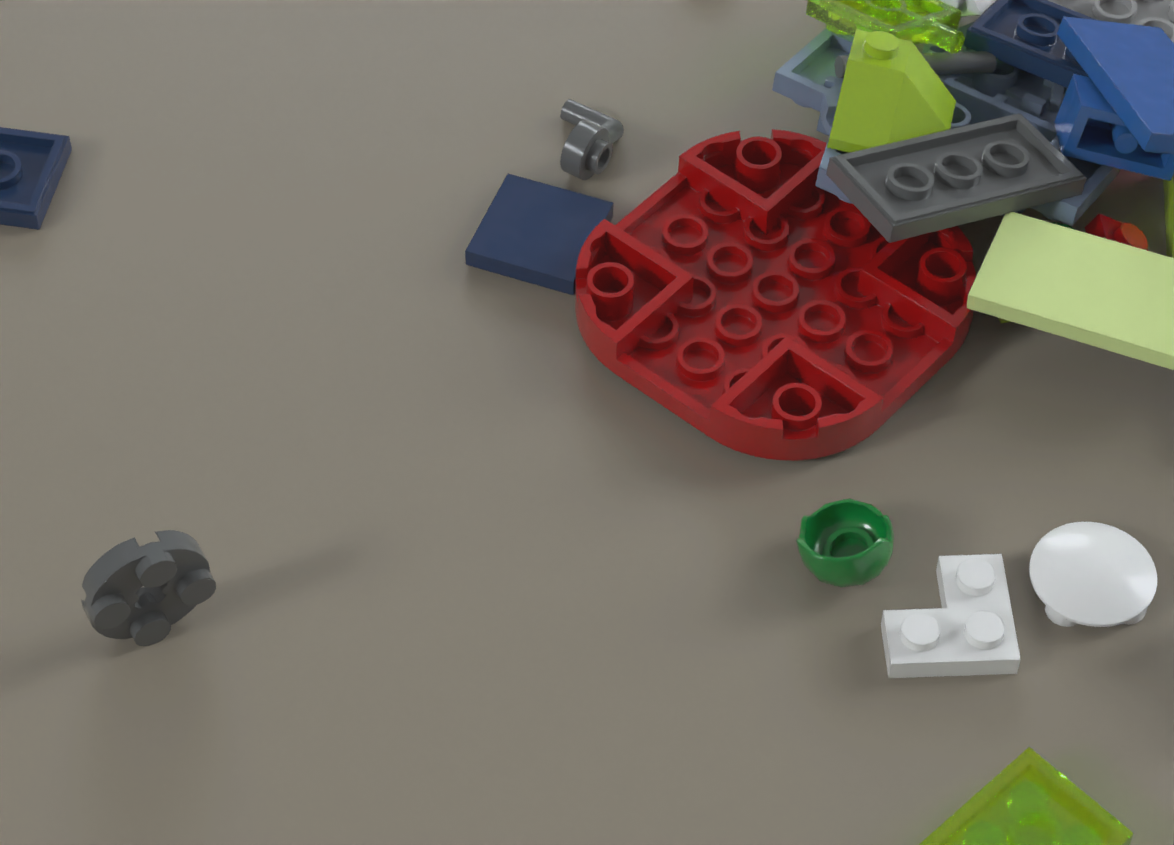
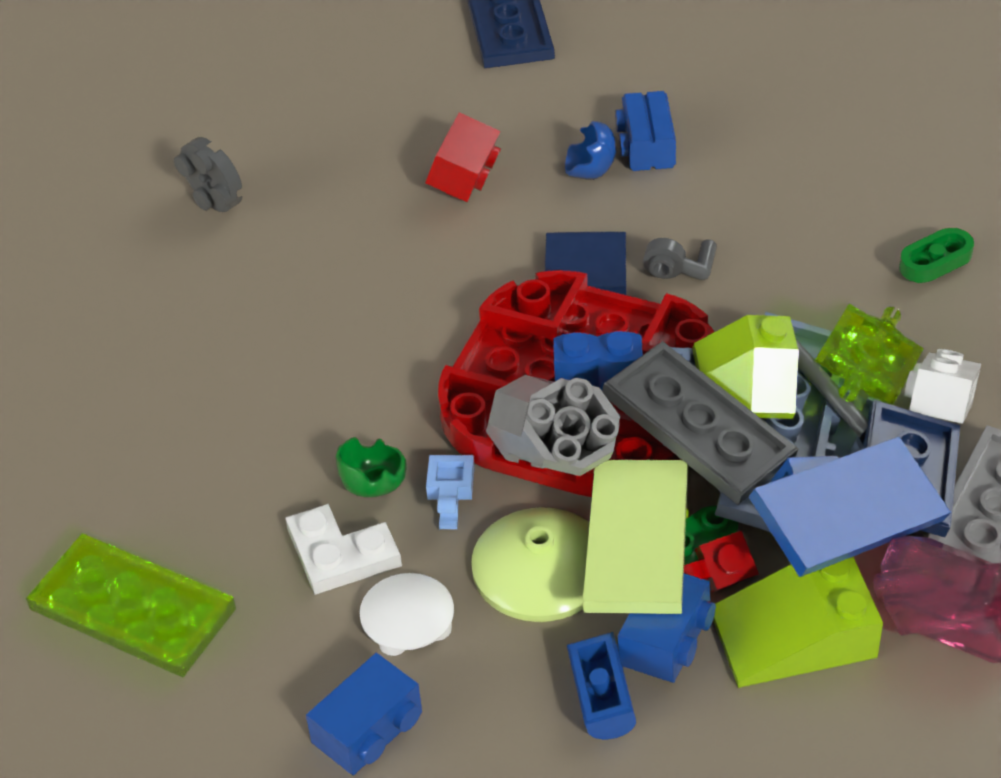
camera: 75 degrees right, 5 degrees down
(273, 286) = (463, 158): none -> brick
(322, 91) = (647, 131): none -> blue brick
(337, 156) = (594, 154): none -> blue hair
(794, 250) = (595, 357): none -> blue brick
(895, 468) = (448, 481): none -> light blue plate
(914, 306) = (554, 424): none -> light grey brick
(1047, 427) = (533, 564): none -> yellowish green dish

